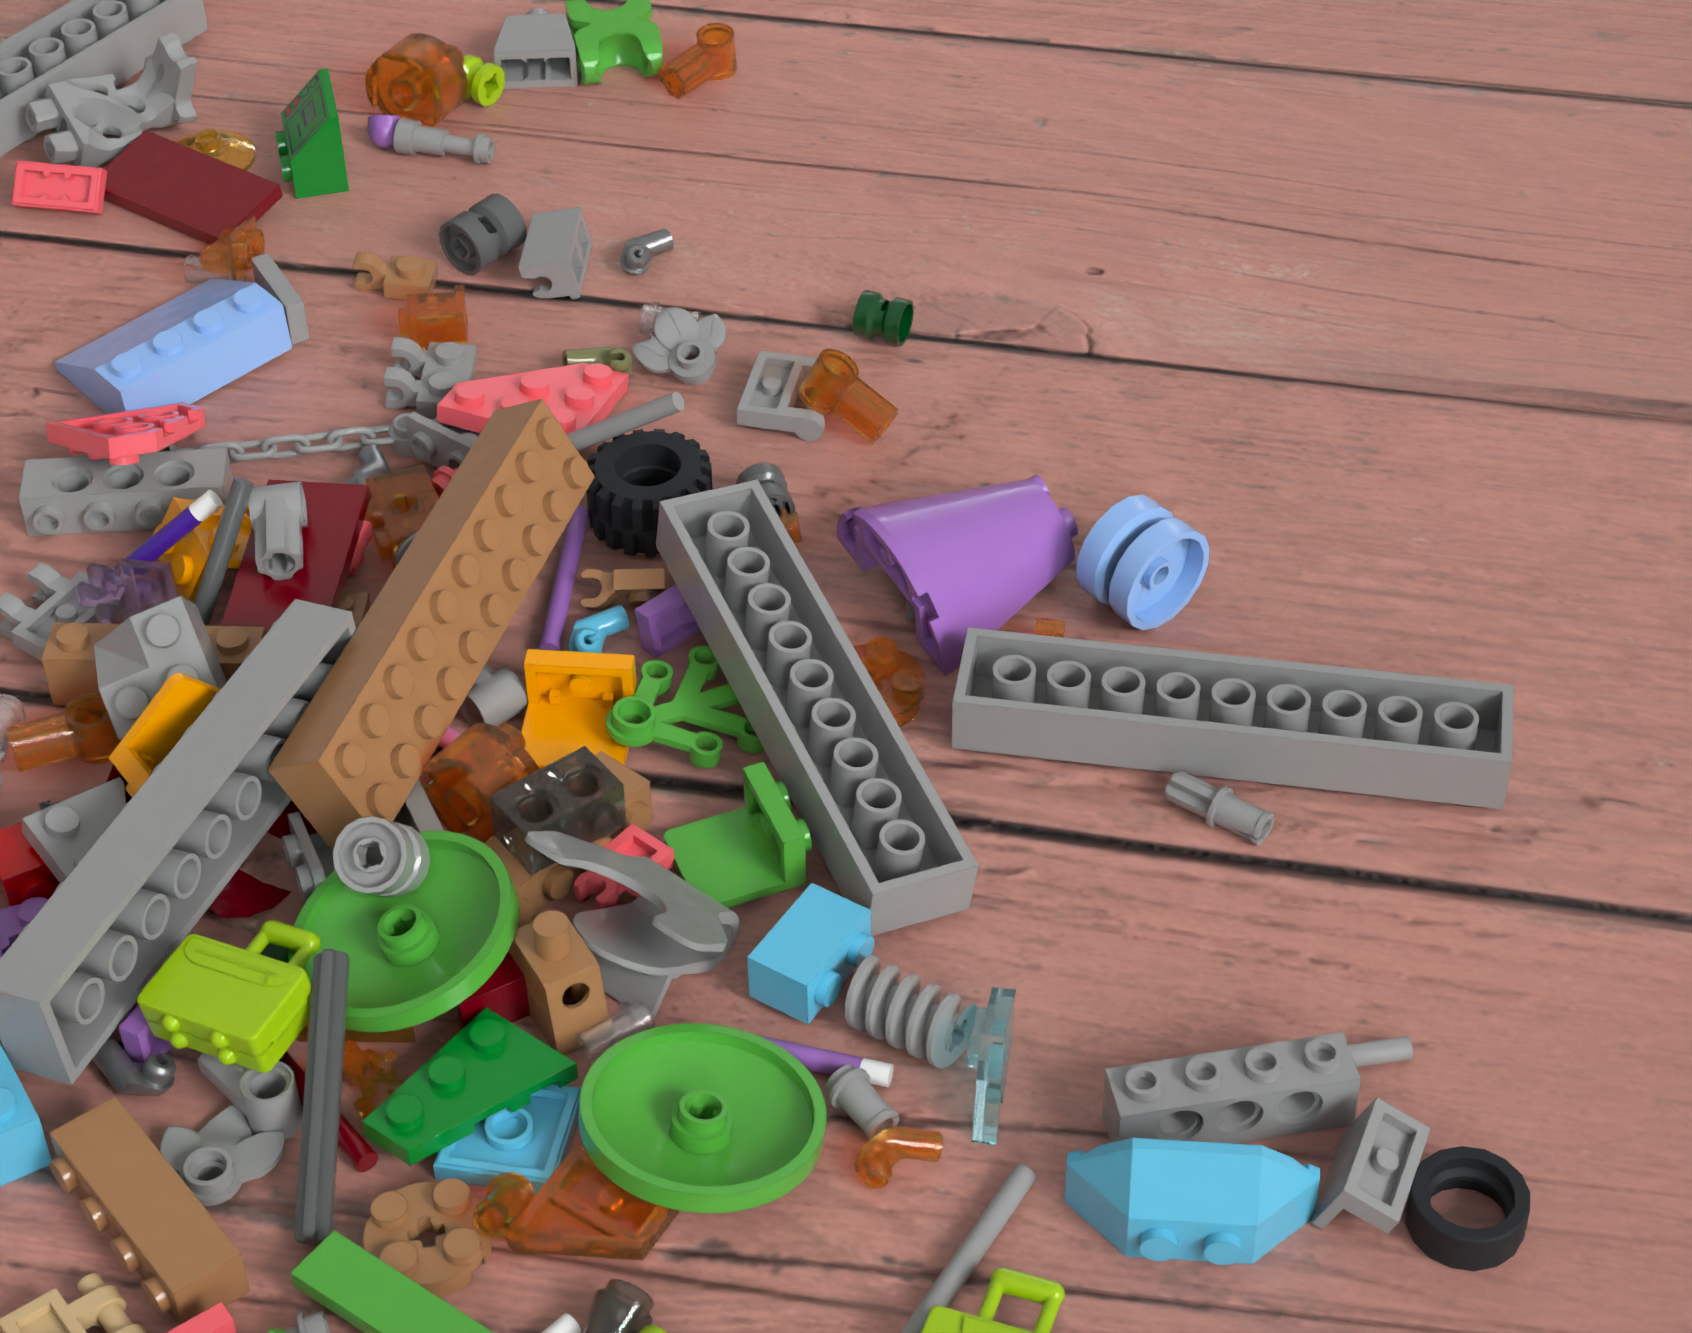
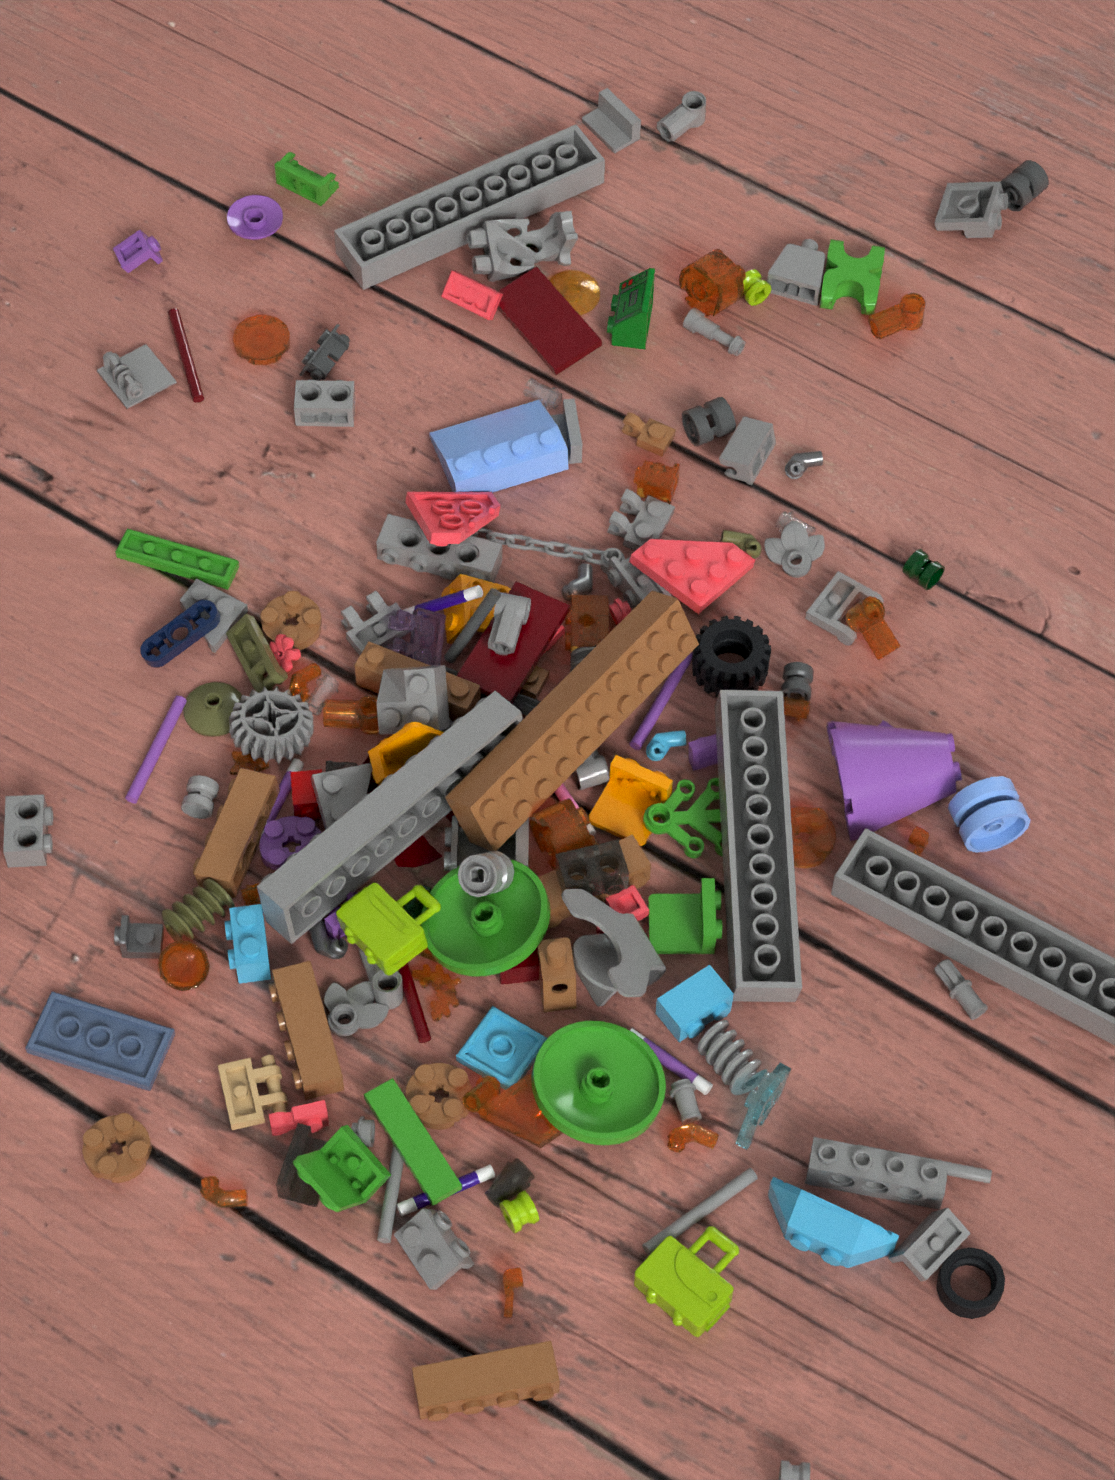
camera: 20 degrees right, 15 degrees up
(234, 250) = (556, 386): clear orange hinge -> none
(322, 1097) = (411, 999): dark grey axle -> none
(382, 129) = (680, 309): medium lavender hinge -> none
(467, 1080) = (487, 1016): green wing -> none
(626, 1022) = (576, 1011): clear pin -> none
(627, 421) = (722, 612): light grey bar -> none
(635, 584) = (701, 722): medium nougat plate -> none

